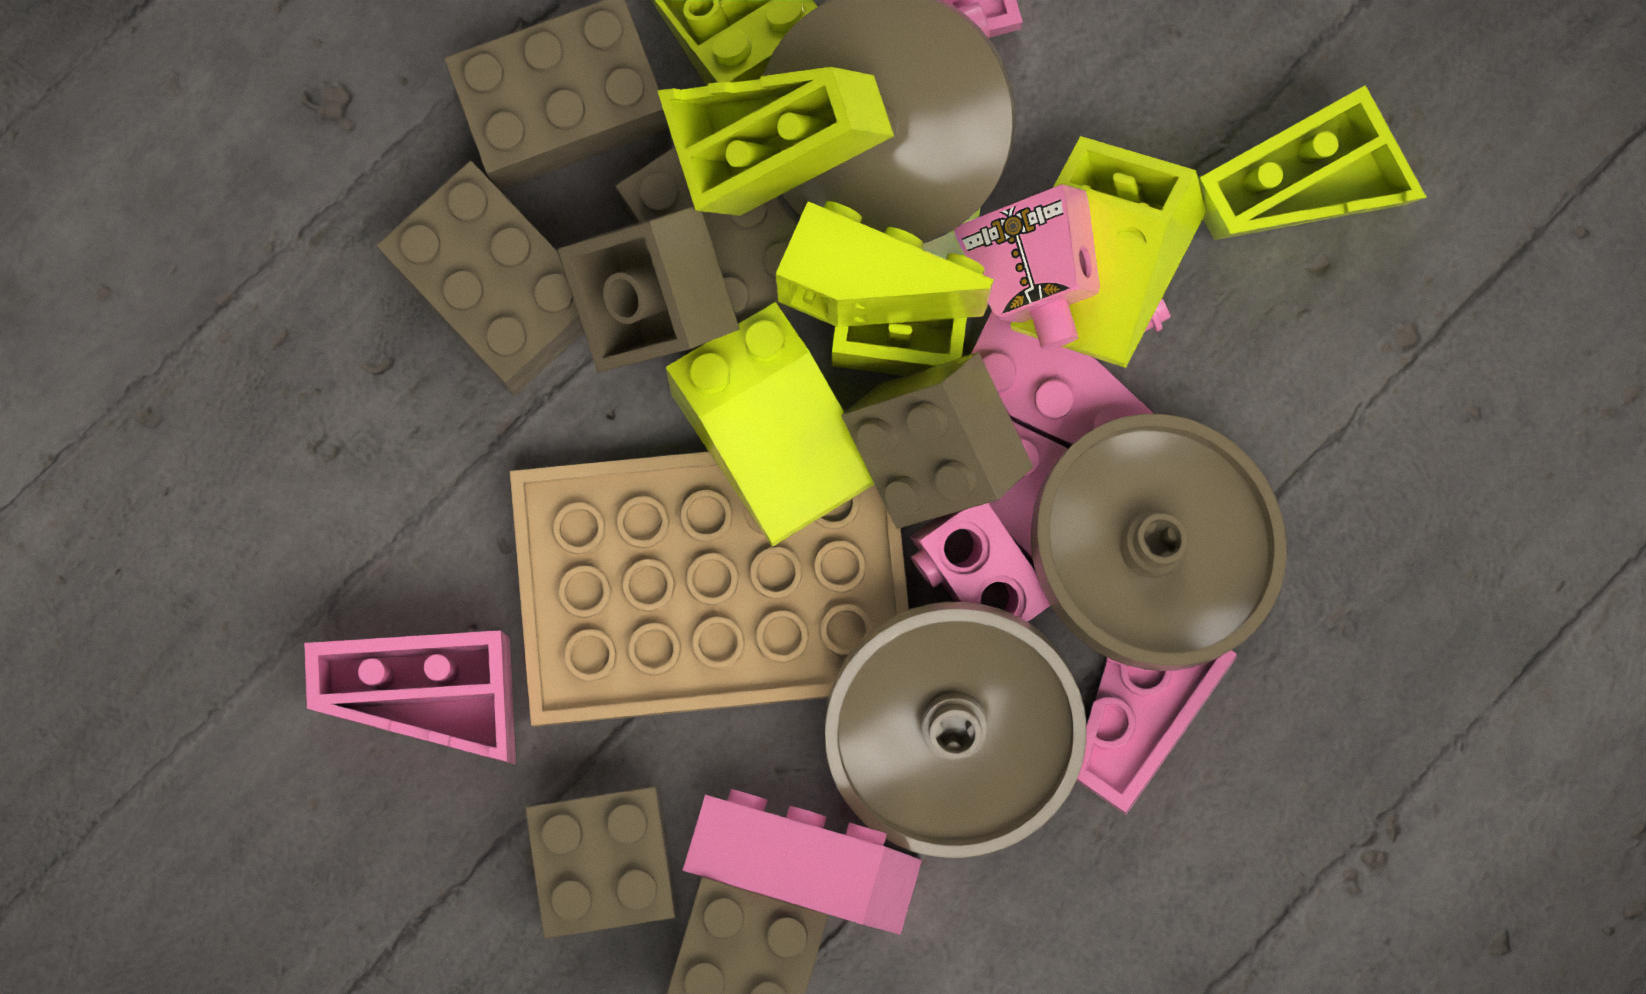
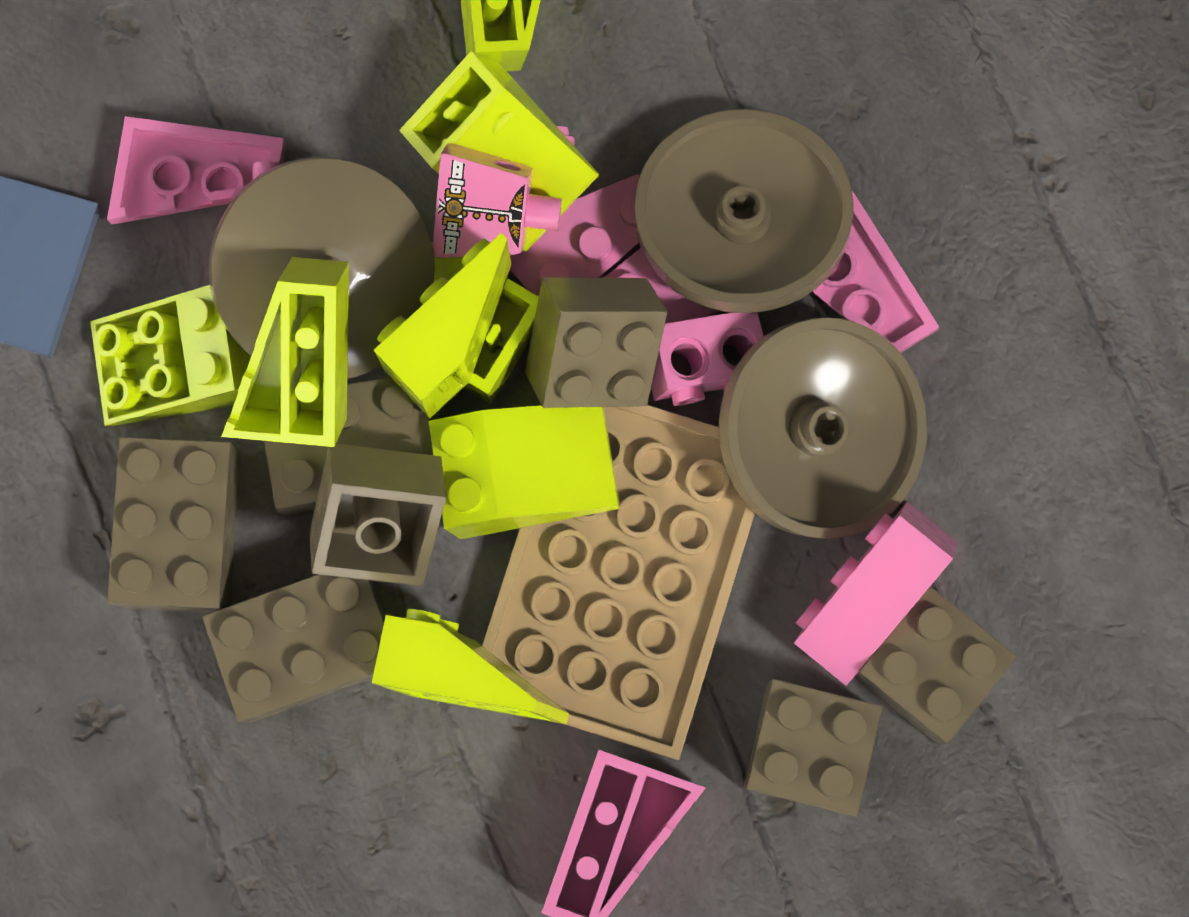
camera: 70 degrees left, 0 degrees up
(522, 430) = (436, 663): none -> neon yellow slope

